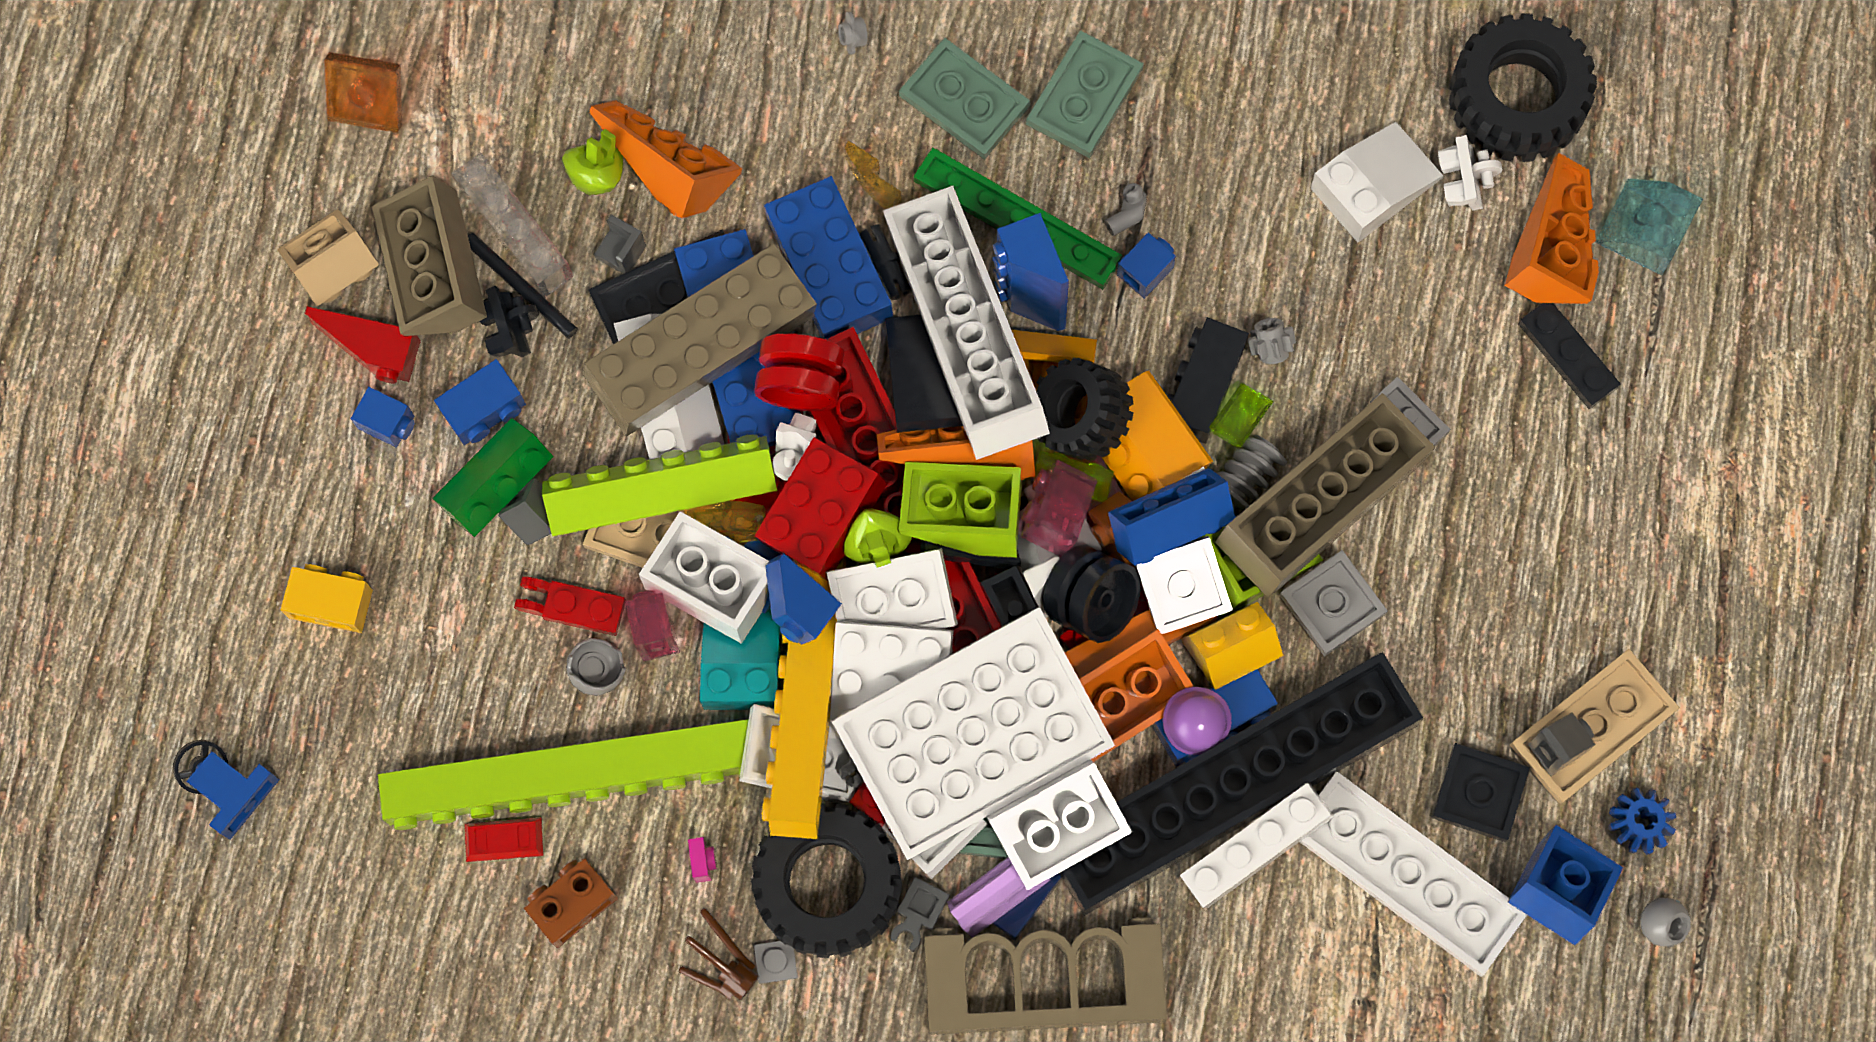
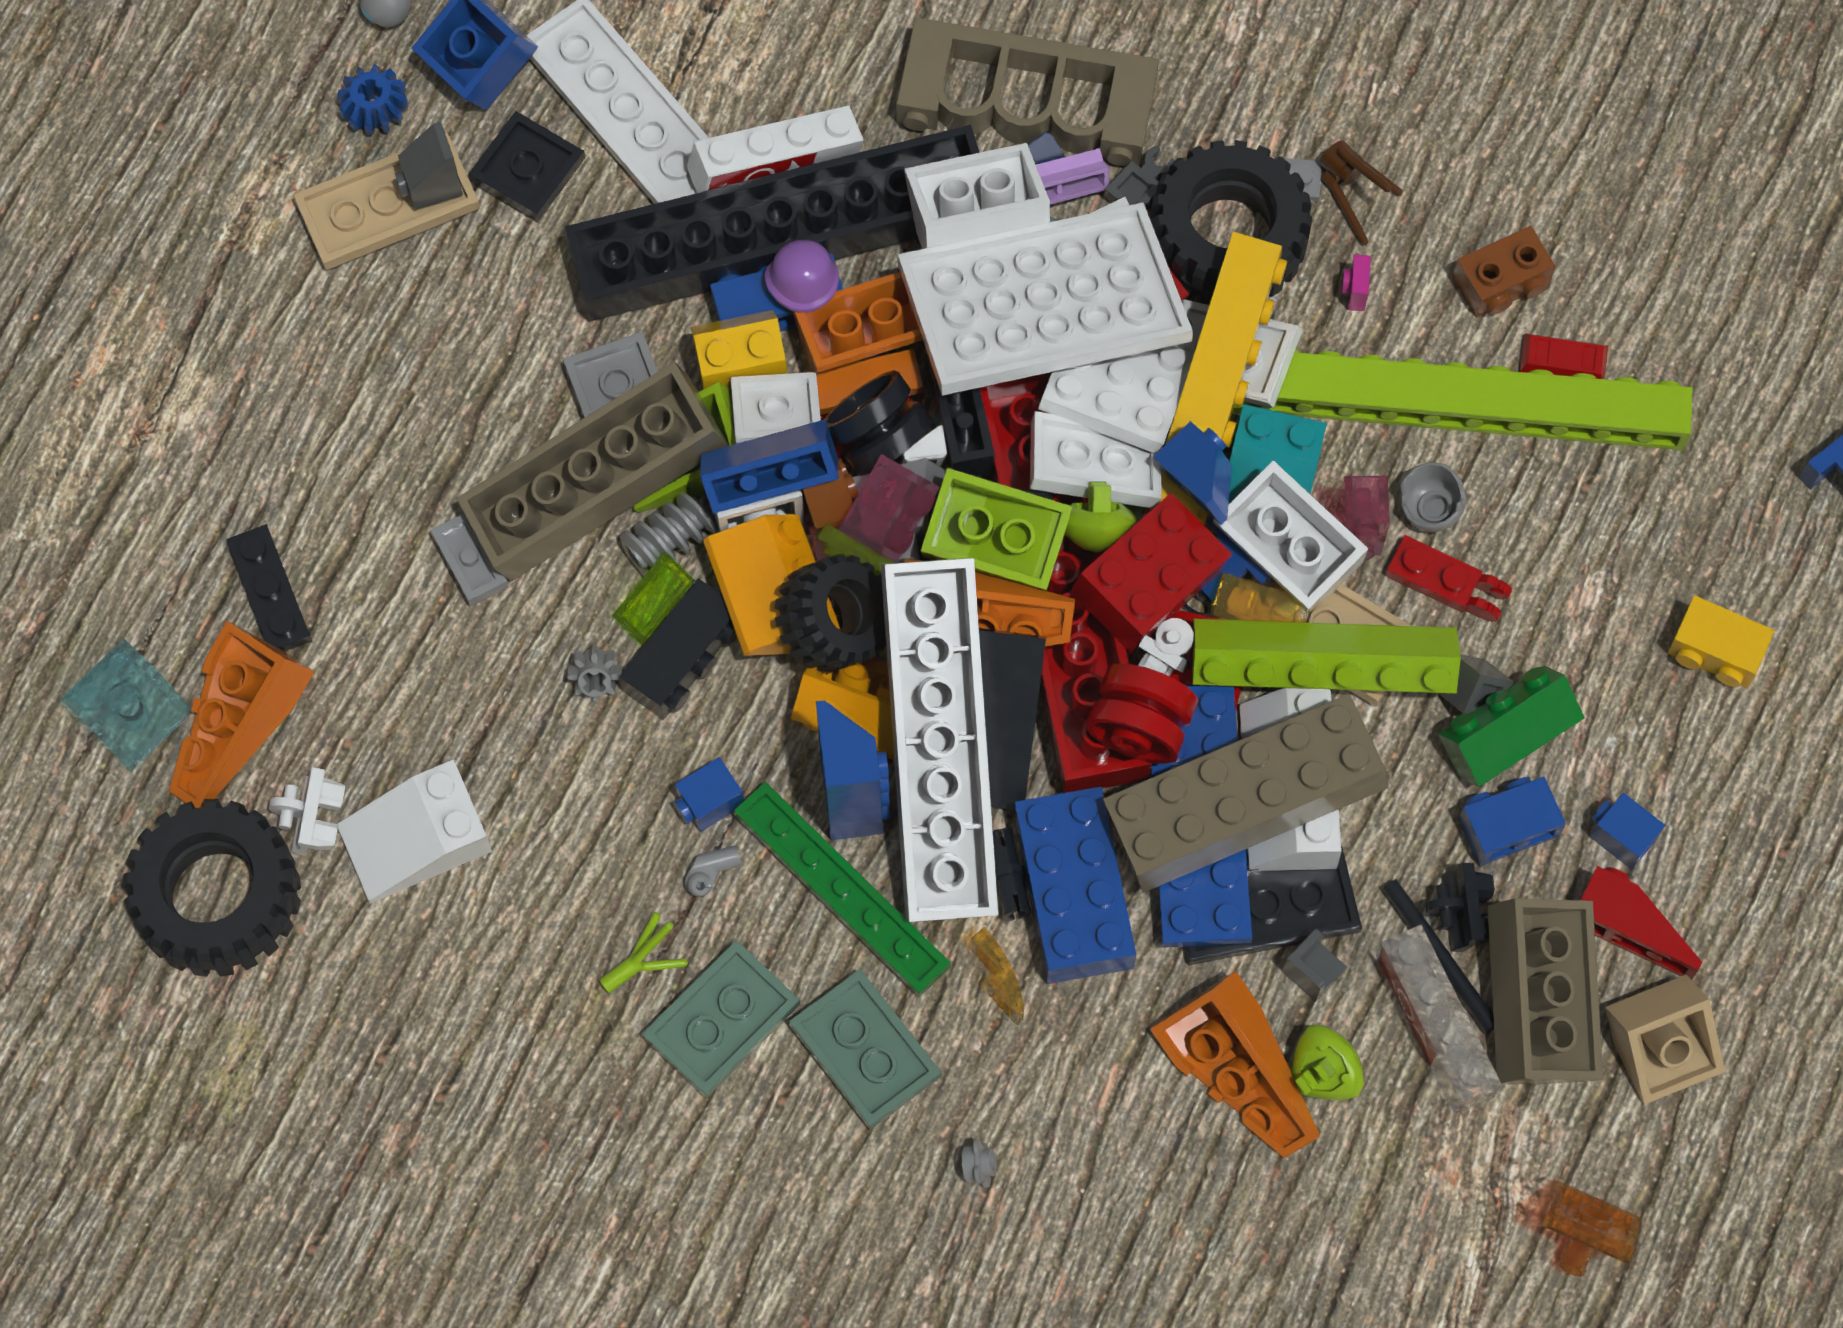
camera: 170 degrees left, 5 degrees down
(1167, 122) = (634, 963): none -> lime plant

